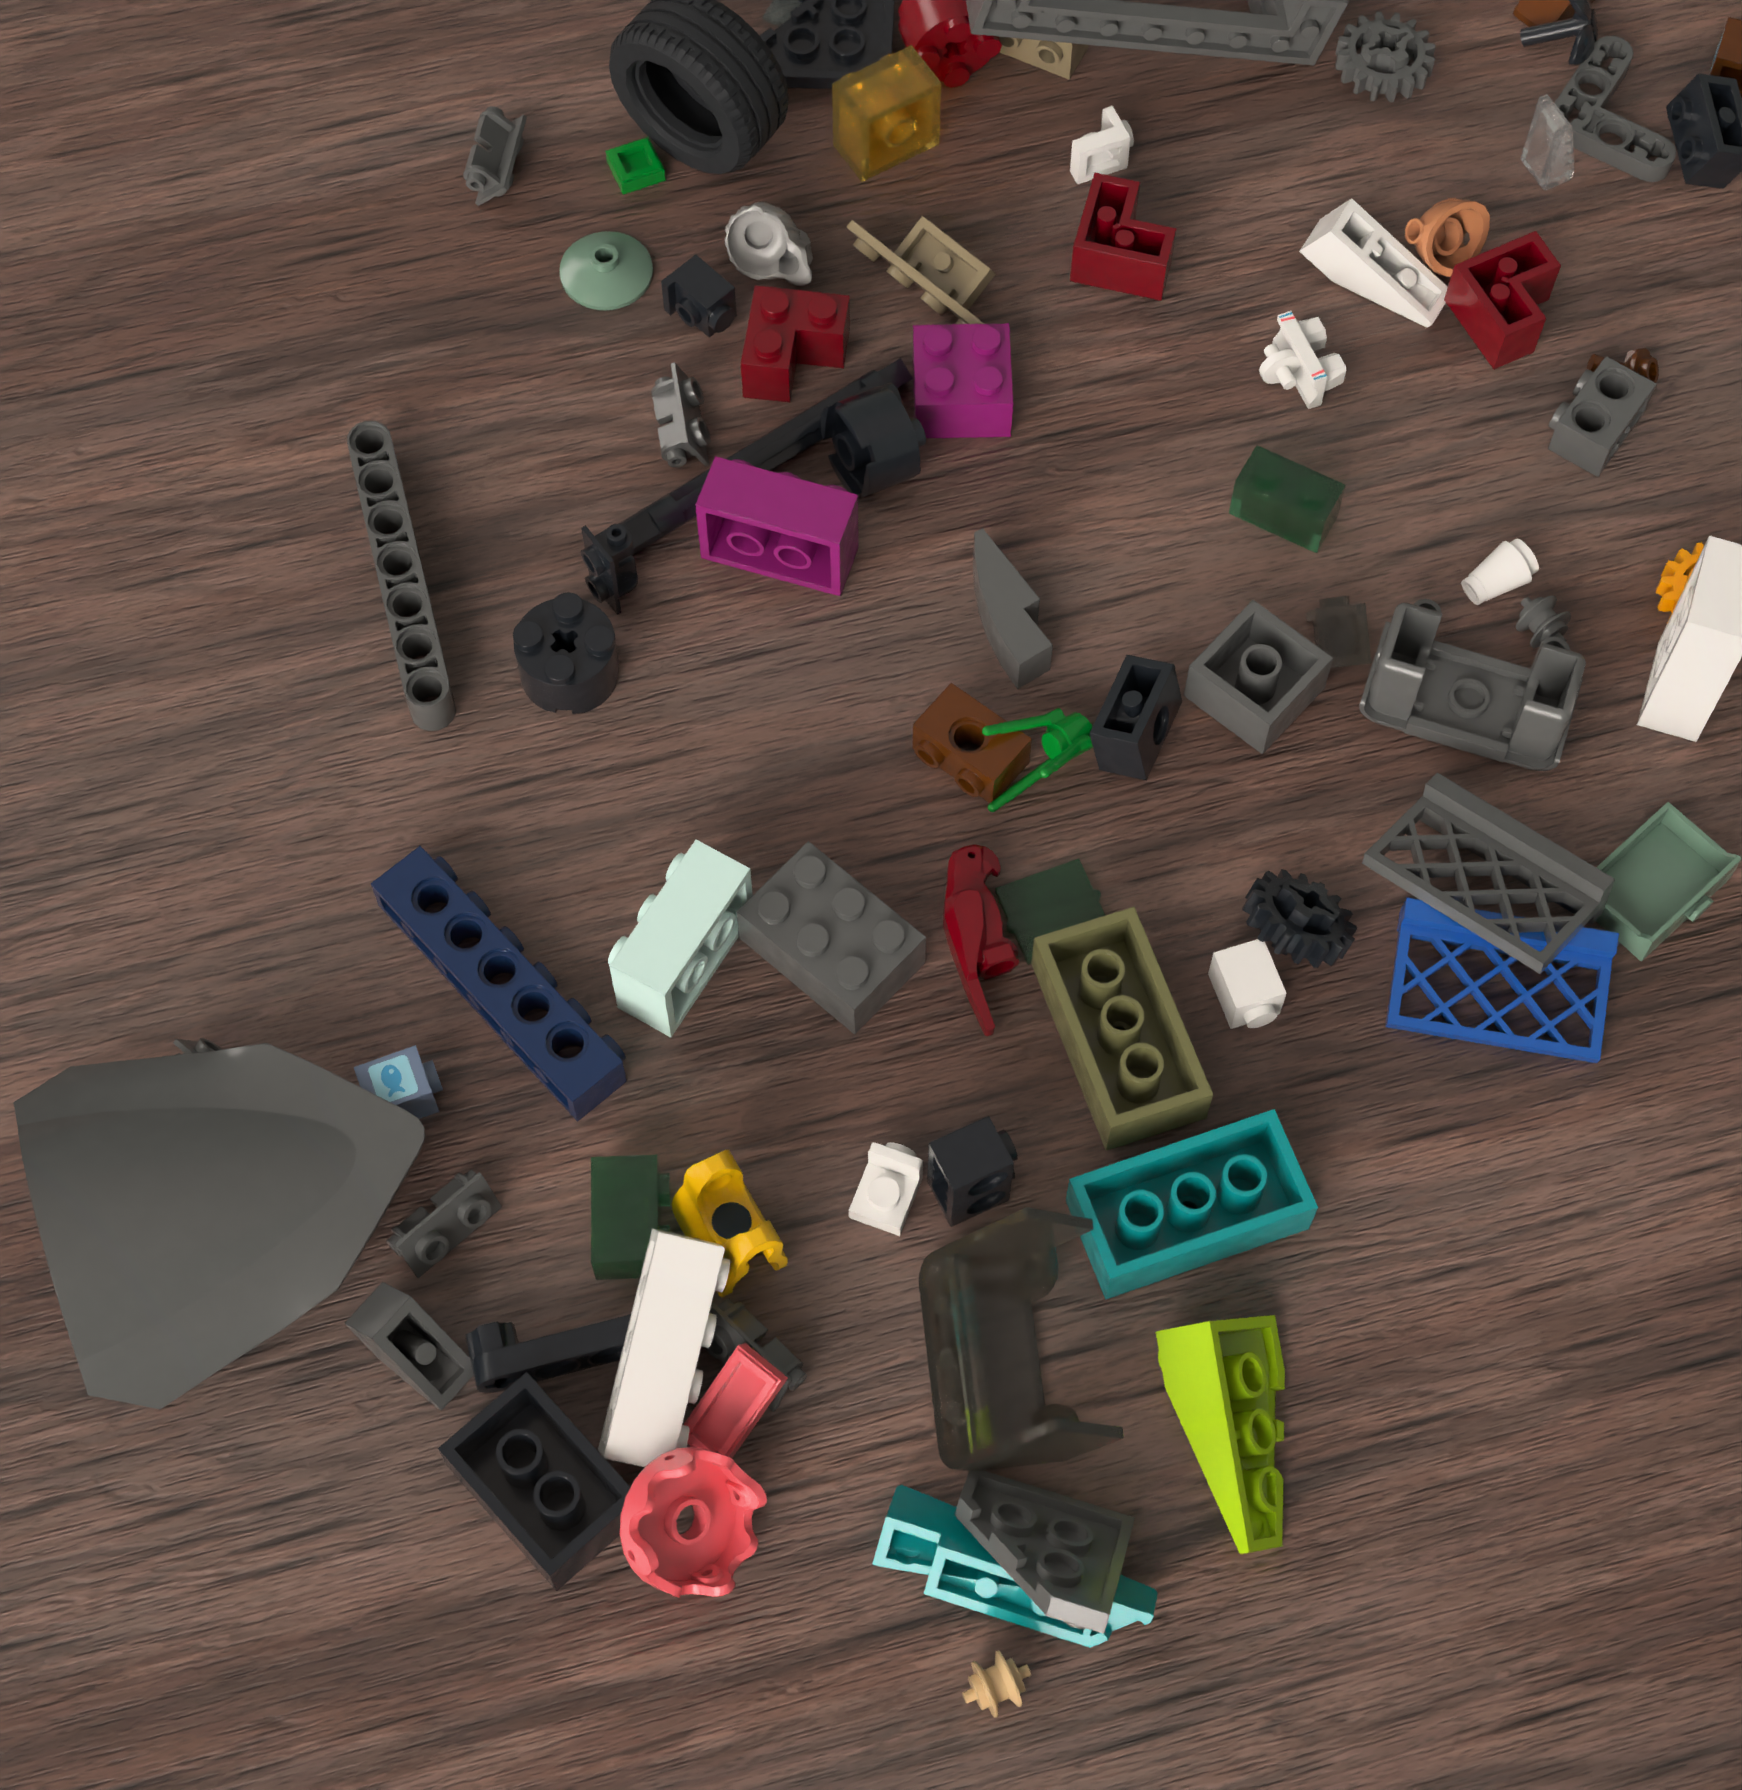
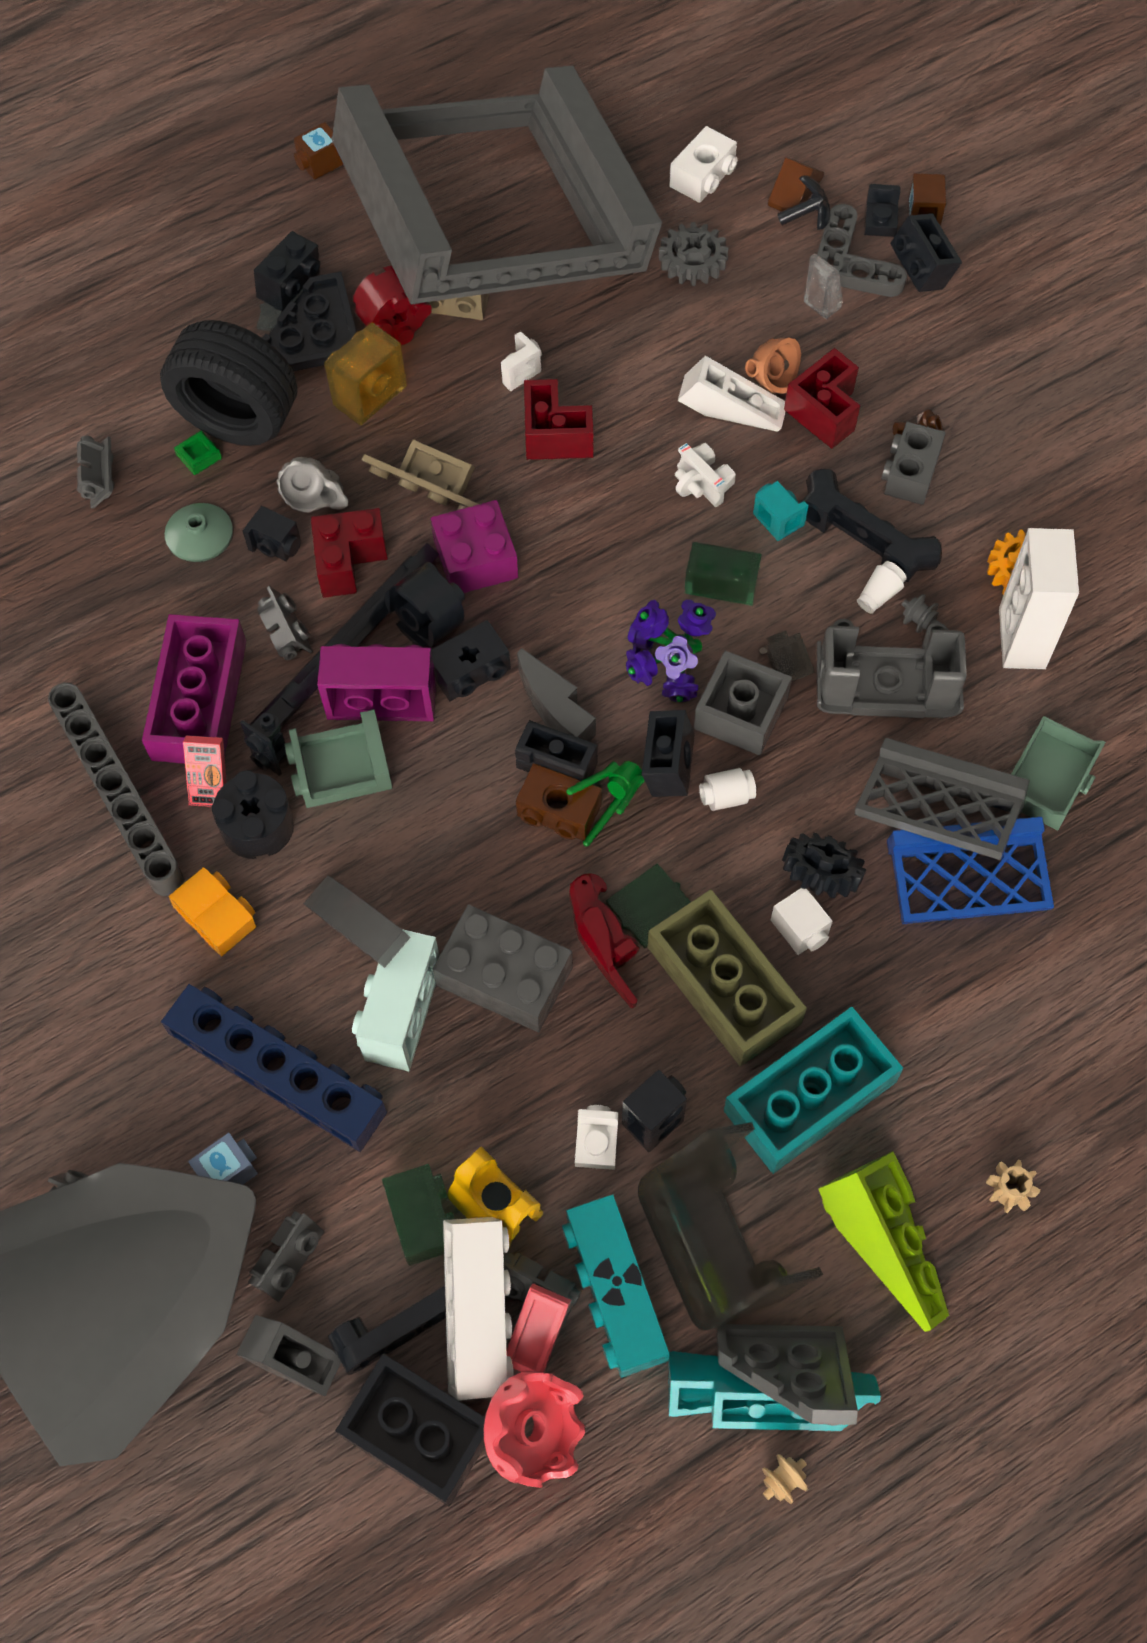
camera: 15 degrees left, 0 degrees up
(480, 764) = (213, 910): none -> light orange brick
(519, 576) = (204, 768): none -> tile
(538, 474) = (194, 684): none -> magenta brick
(657, 823) = (357, 921): none -> dark grey slope
(699, 617) = (339, 762): none -> sand green panel
(854, 1381) = (616, 1286): none -> teal brick
(910, 528) = (470, 661): none -> black brick
(986, 675) = (555, 751): none -> black brick
(1188, 586) = (678, 648): none -> dark purple plant
(1203, 785) = (727, 789): none -> white brick
(1392, 434) = (779, 510): none -> teal brick
(1428, 1391) = (1013, 1175): none -> tan gear
(1460, 445) = (830, 508): none -> black plate
(1670, 58) = (882, 210): none -> black bracket

